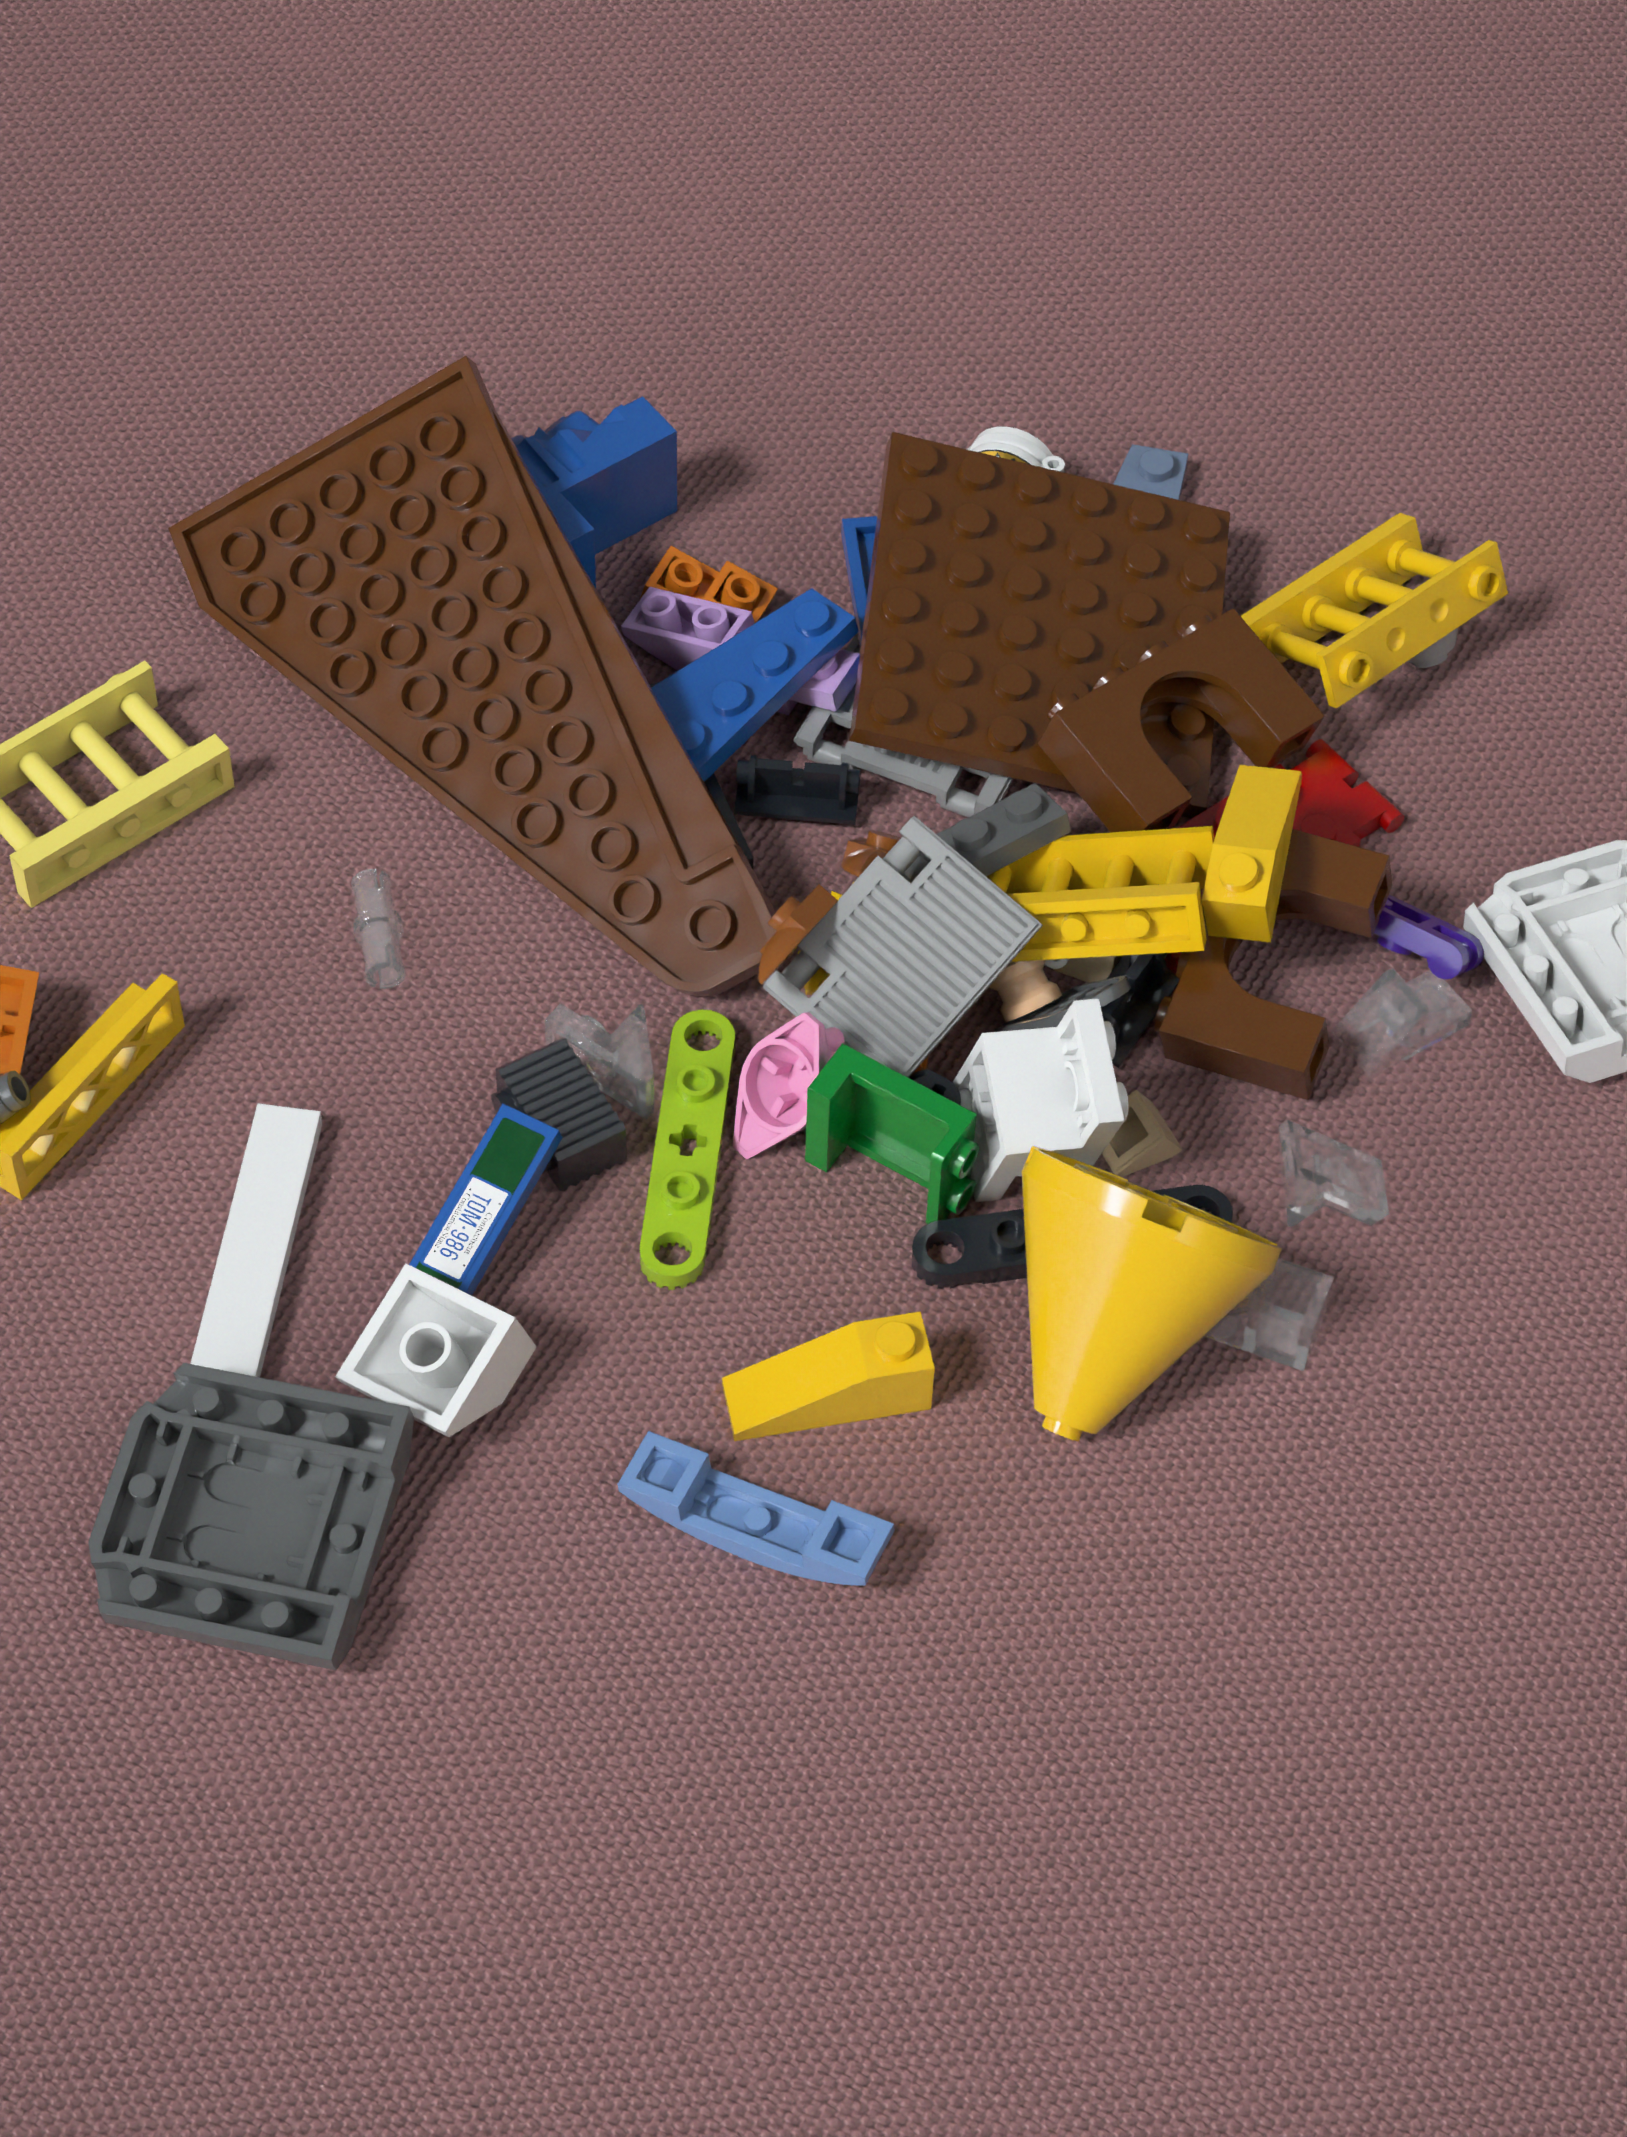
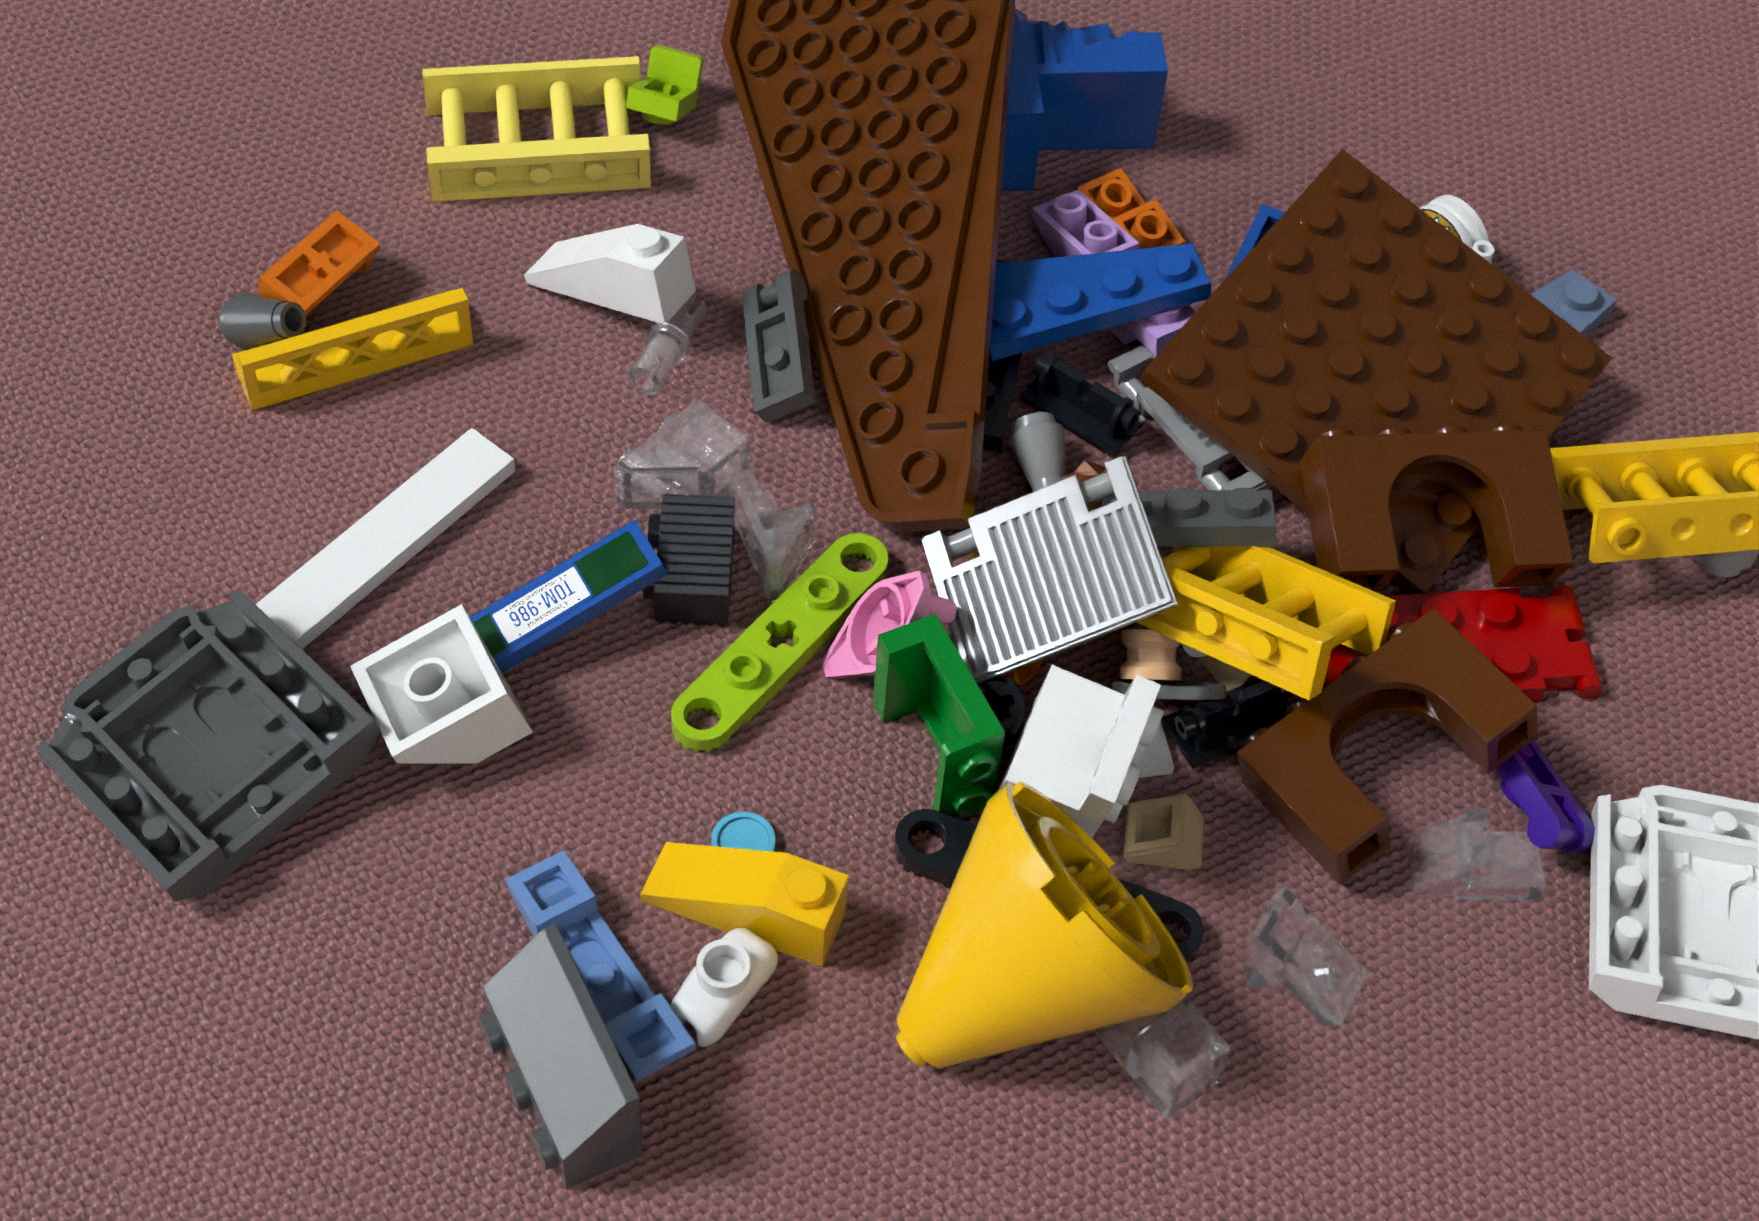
camera: 30 degrees right, 0 degrees up
(184, 676) = (669, 86): none -> lime bracket
(286, 880) = (620, 269): none -> white slope
(486, 877) = (778, 346): none -> dark grey plate
(486, 1026) = (685, 456): none -> clear slope
(782, 1332) = (744, 831): none -> medium azure piece
(792, 925) = (970, 497): dark orange plate -> none
(792, 1600) = (561, 1062): none -> slope
(793, 855) = (1038, 448): none -> light grey cone
(869, 1462) = (724, 983): none -> white piece
(1251, 854) = (1408, 639): yellow slope -> none

